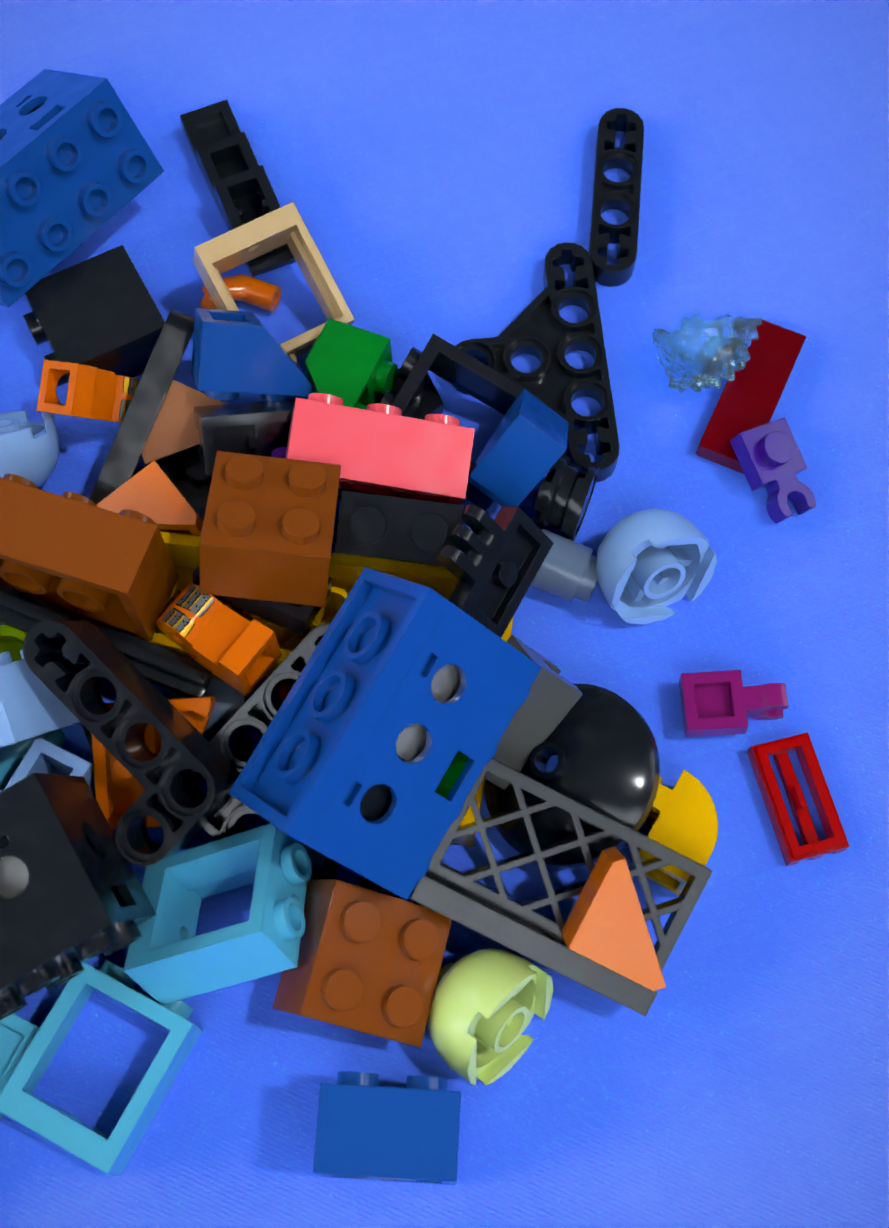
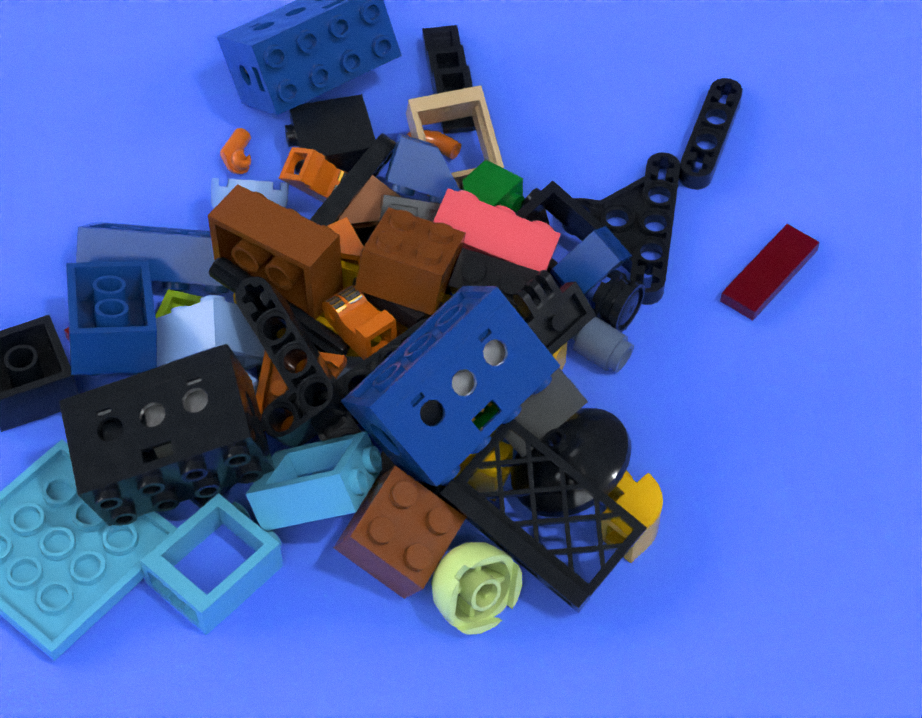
camera: 15 degrees right, 15 degrees down
(388, 1130) = (388, 632): blue piece -> none
(611, 925) = (567, 538): orange slope -> none
(652, 564) = (666, 353): light blue cylinder -> none
(704, 350) = (740, 232): clear light blue hair -> none
(720, 705) = (689, 448): magenta plate -> none
(772, 461) = (770, 310): dark purple plate -> none
(812, 848) = (727, 549): red tile -> none

